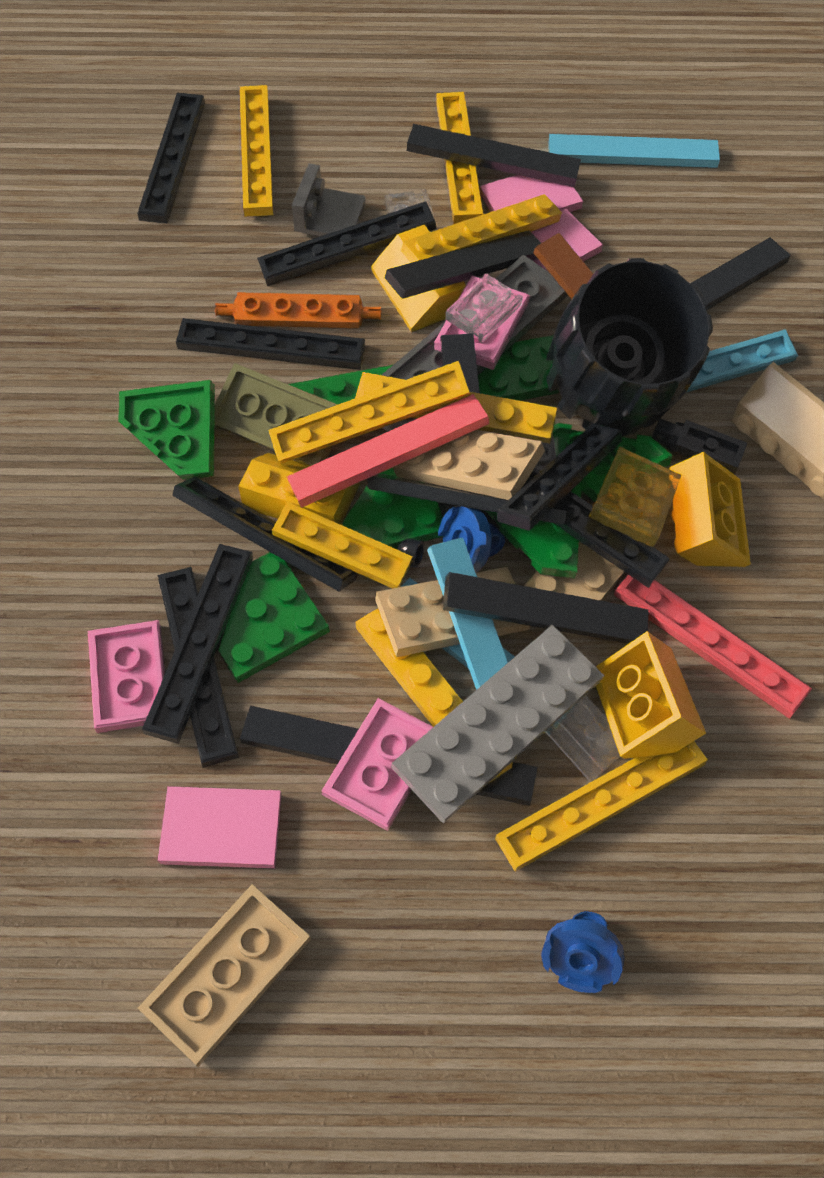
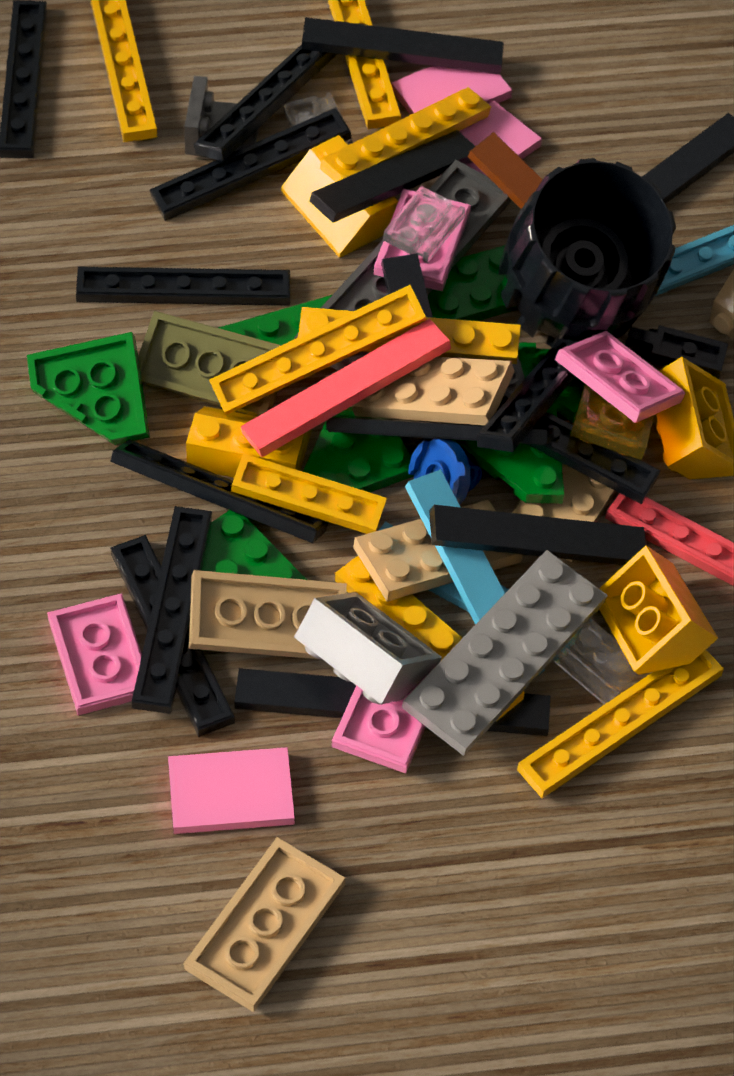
camera: 10 degrees left, 5 degrees down
(283, 659) = (252, 612): none -> tan plate
(298, 310) = (207, 245): orange plate -> none
(364, 193) = (261, 103): none -> black tile
(367, 702) = (365, 646): none -> slope
(413, 548) = (384, 489): black hinge -> none
(583, 953) = (622, 860): blue tile -> none
(637, 150) = (563, 24): medium azure tile -> none
(643, 465) = (620, 376): none -> bright pink tile

